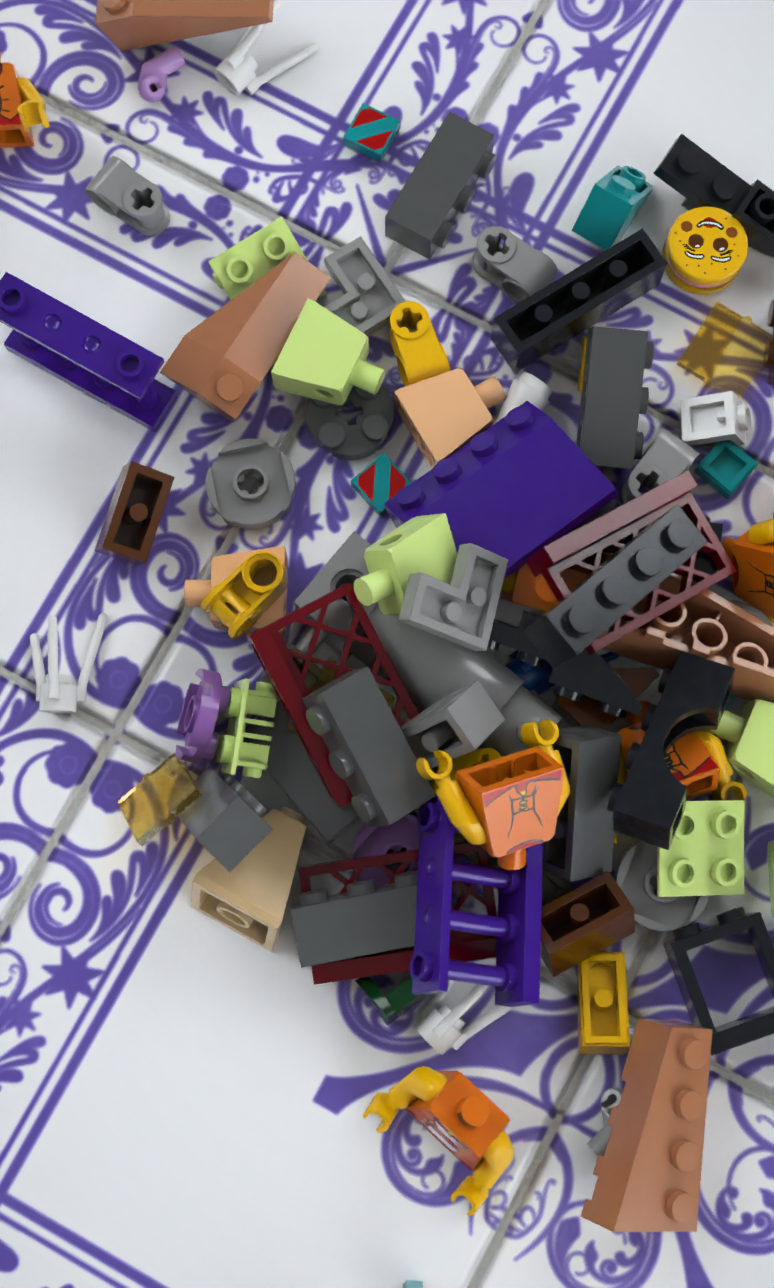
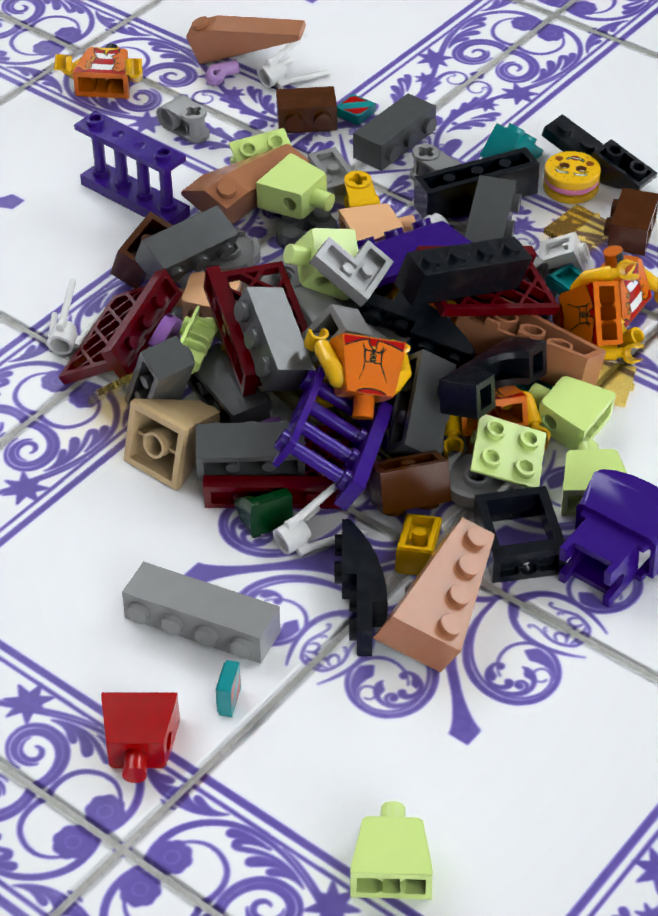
camera: 10 degrees right, 35 degrees down
(163, 689) = (123, 330): none -> dark red fence
(200, 521) = (188, 245): none -> dark grey brick
(245, 595) = (195, 287): yellow piece -> none
(303, 153) = (306, 109): none -> reddish brown brick
(353, 1189) = (201, 612): none -> light grey brick
(459, 1119) = (291, 574): torso -> none
(543, 1090) = (361, 584): none -> black slope

